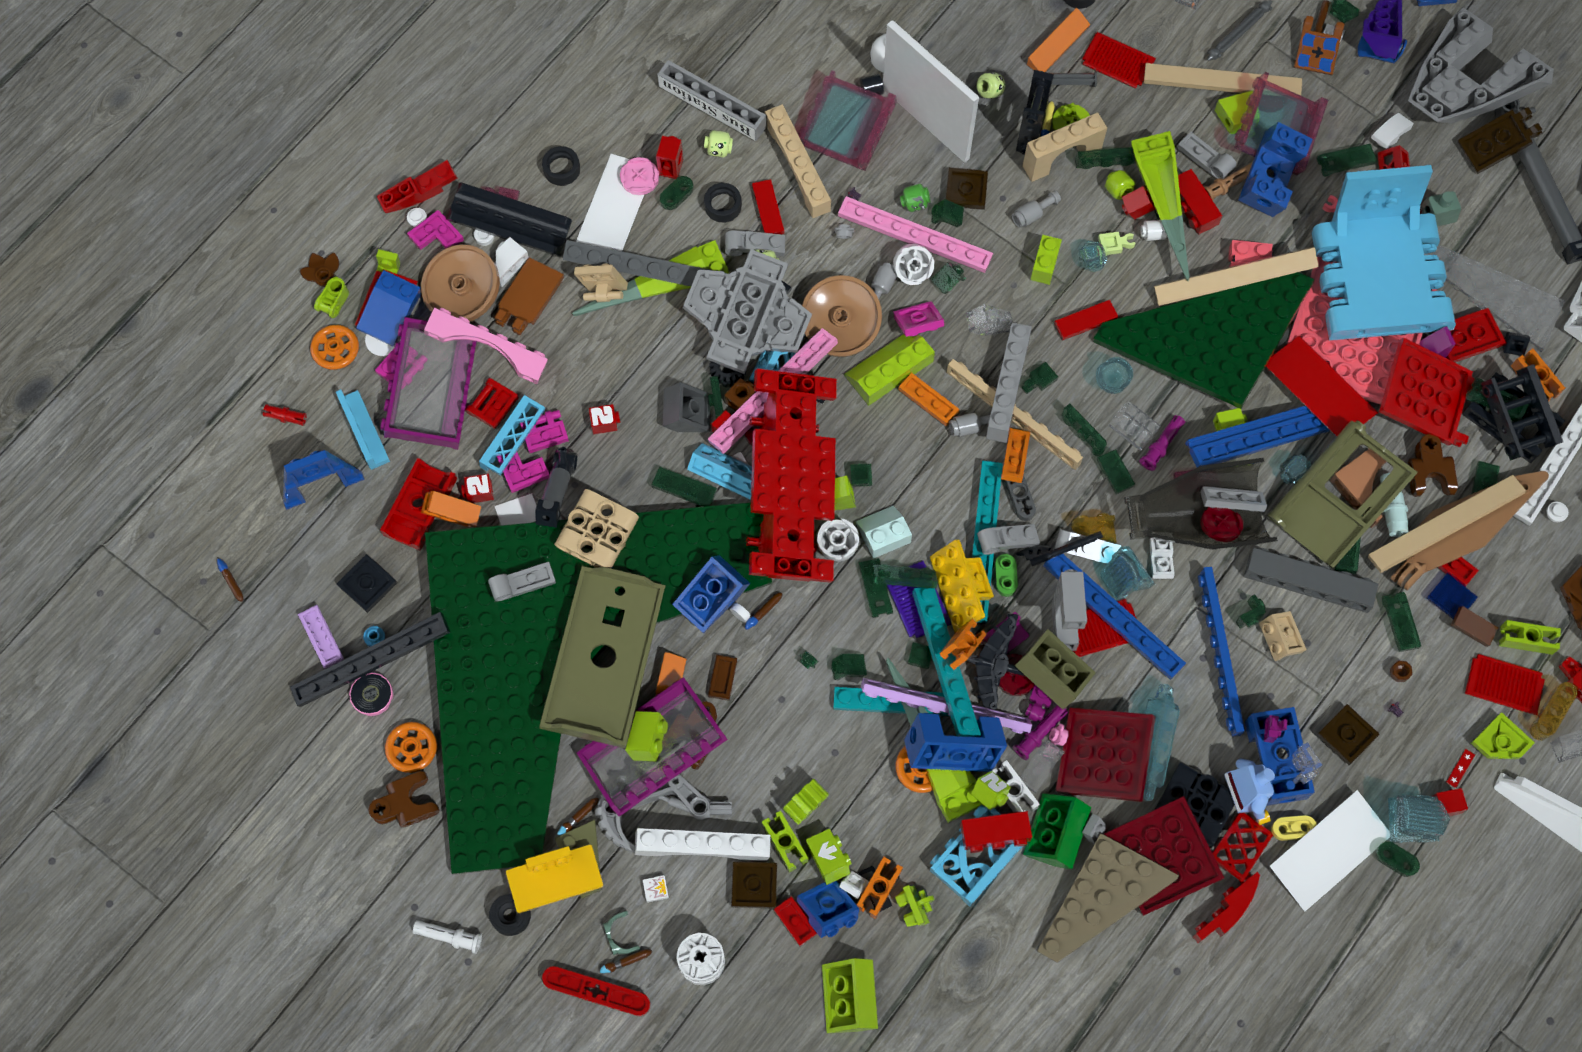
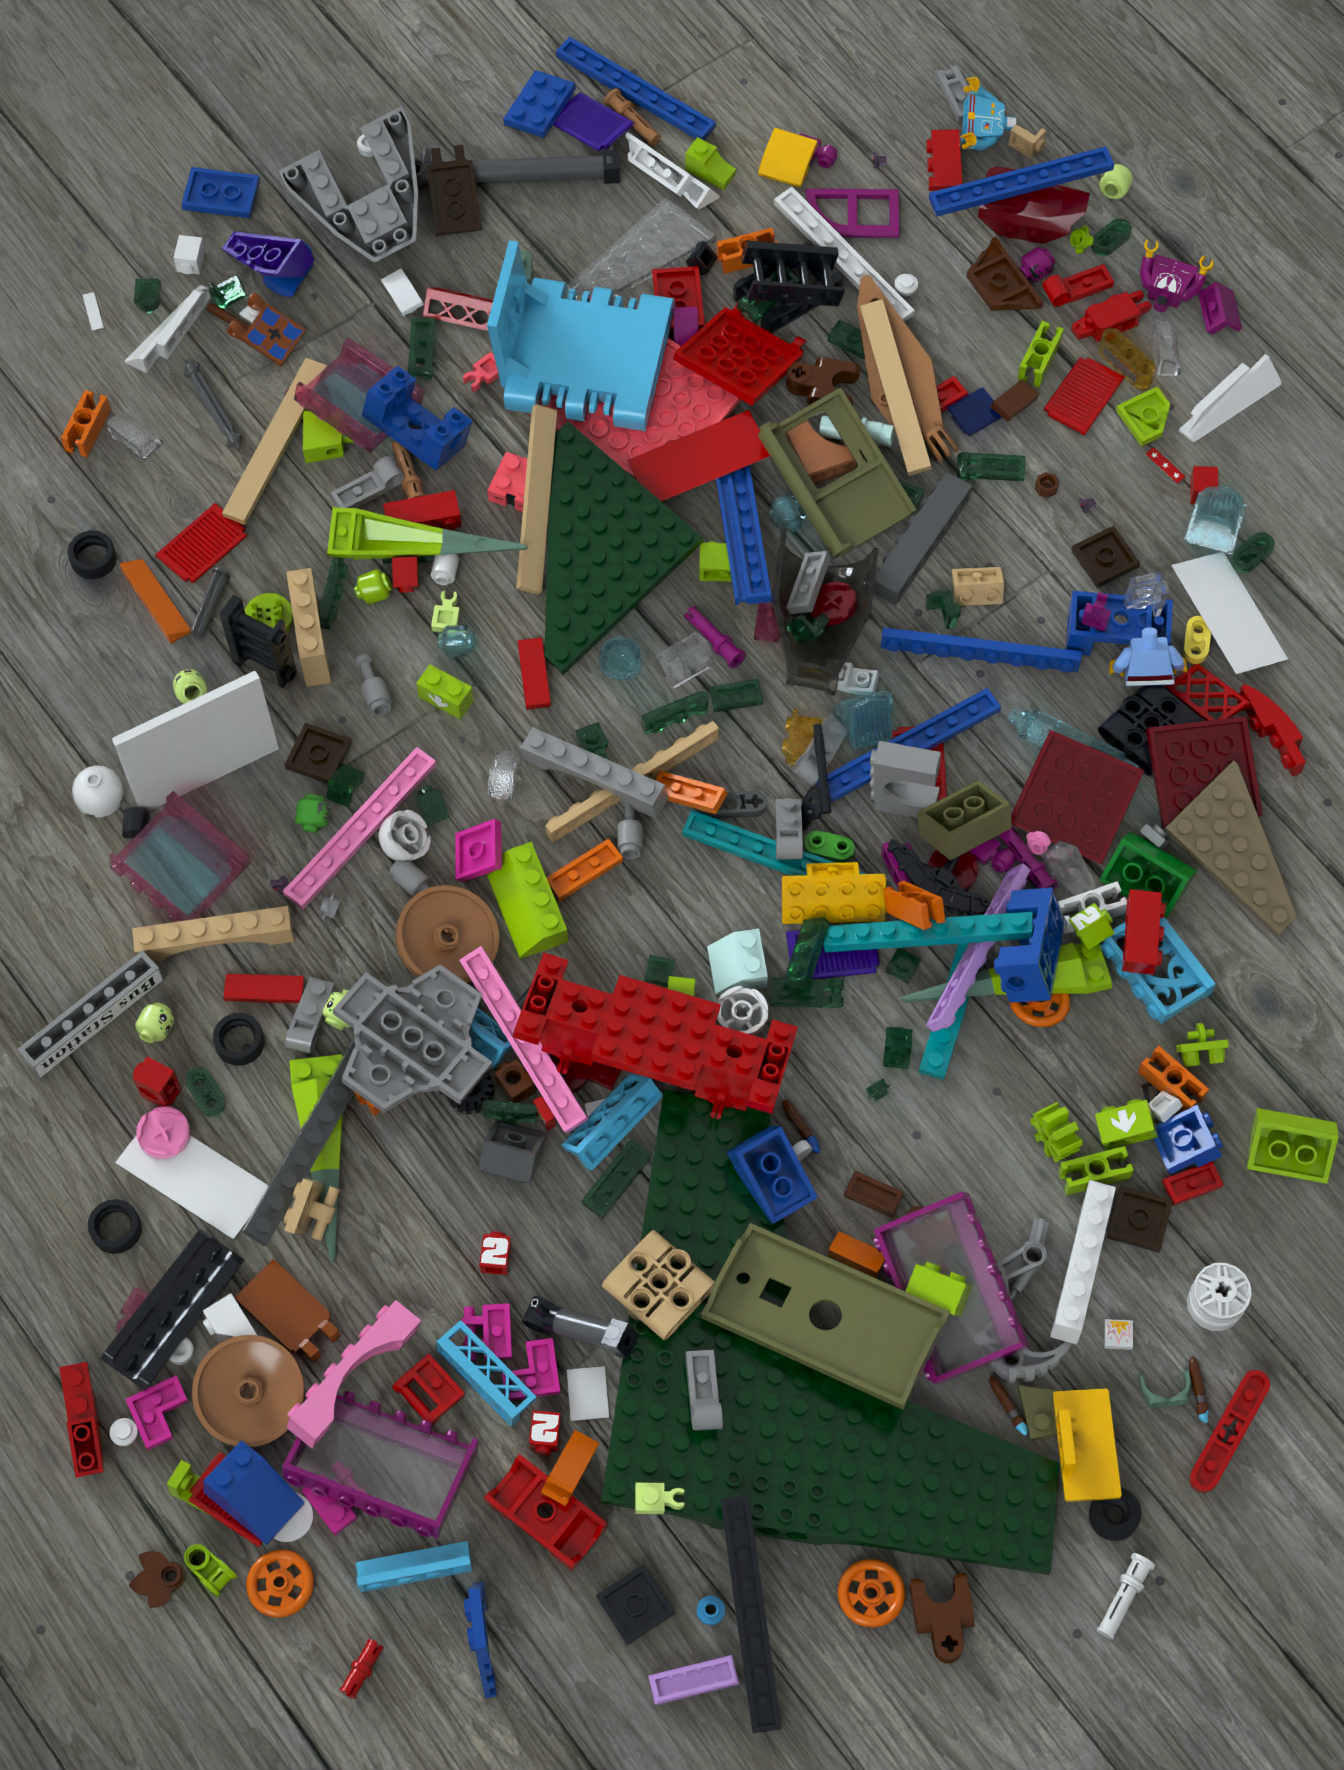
camera: 75 degrees left, 5 degrees down
(371, 694) = (790, 1630): black tile -> none
(432, 566) = (652, 1498): none -> yellowish green plate
(1189, 511) = (805, 630): none -> clear green bracket

